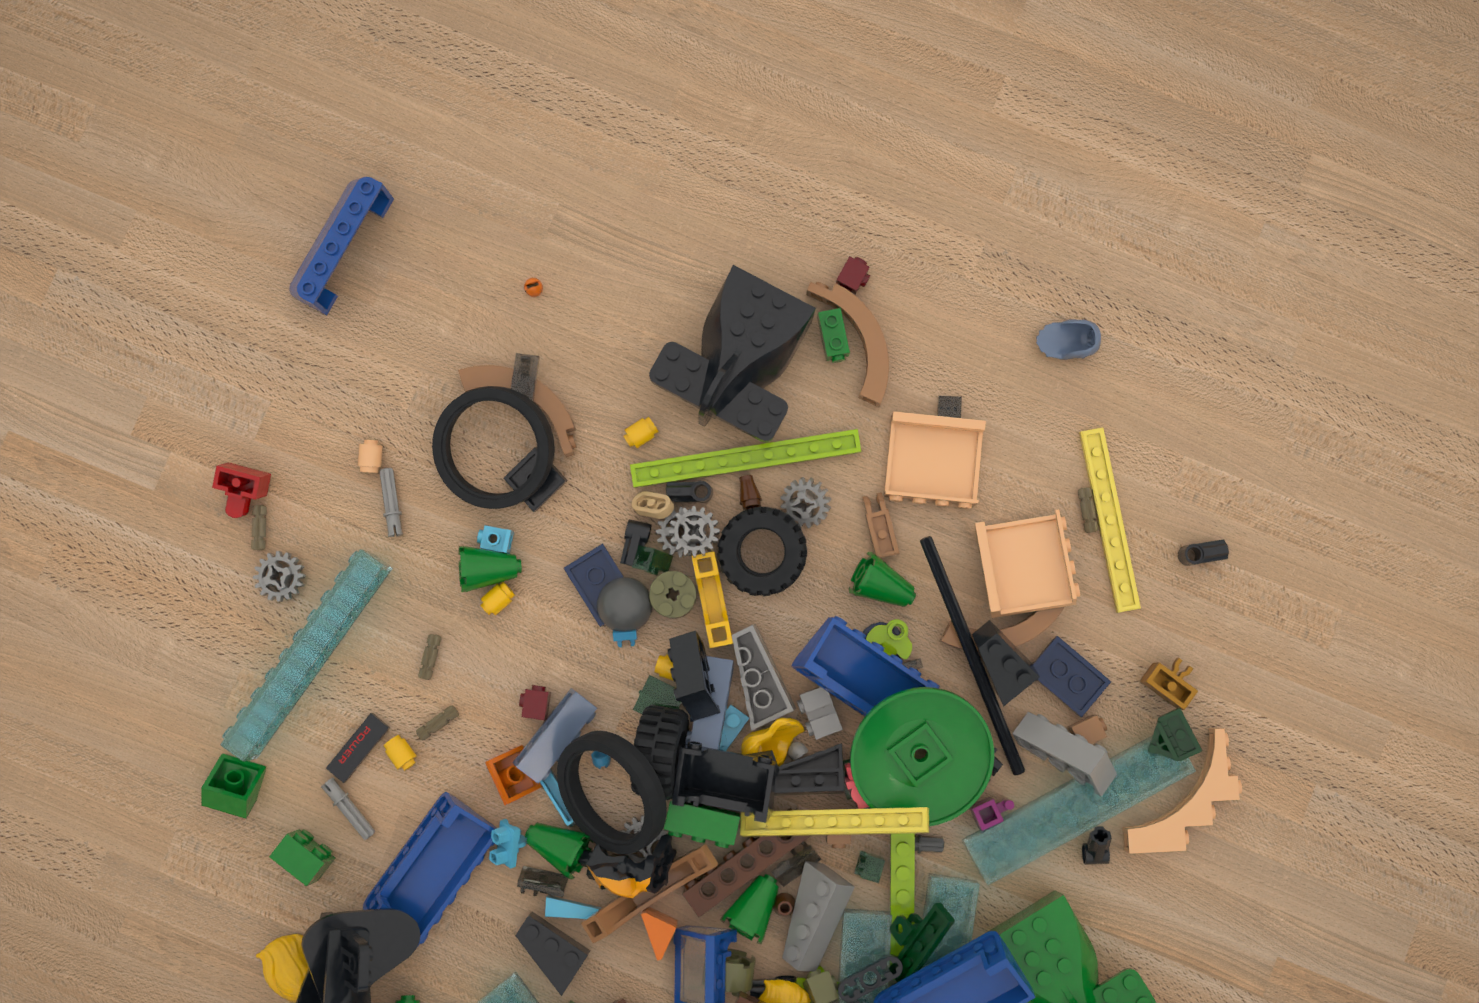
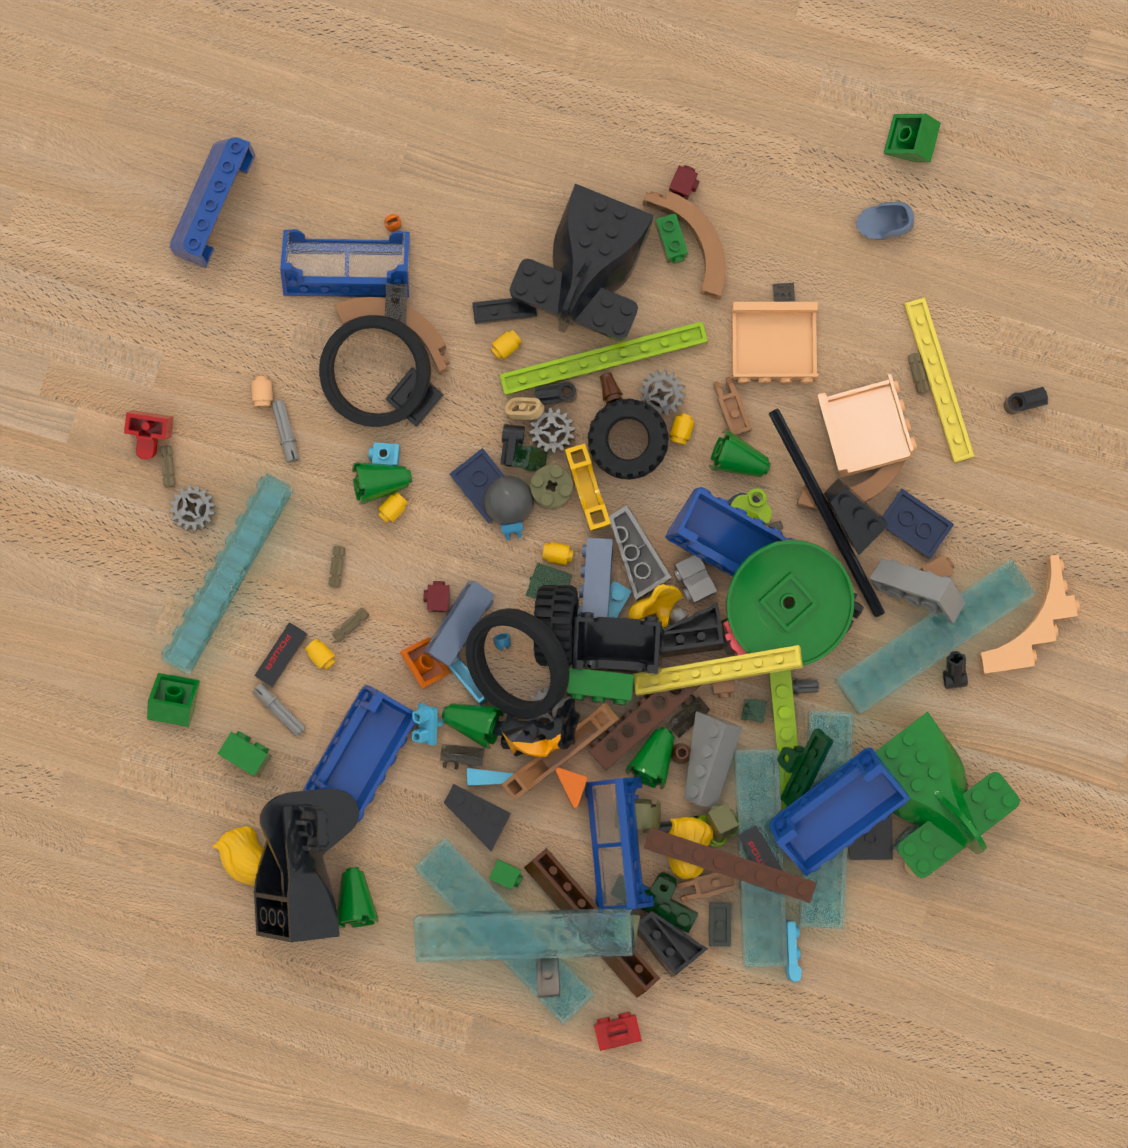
camera: 10 degrees left, 0 degrees up
(473, 327) = (343, 265): none -> windscreen
(640, 395) = (502, 310): none -> black tile
(691, 675) = (577, 555): black wedge -> none
(701, 524) = (560, 434): light grey gear -> none
(822, 545) = (682, 429): none -> yellow brick
(850, 980) = (754, 818): black beam -> none
(987, 812) = (856, 650): magenta brick -> none
(1107, 251) = (912, 137): none -> green slope
(1169, 685) = (1005, 521): pearl gold brick -> none
(1174, 737) = (1013, 565): dark green slope -> none

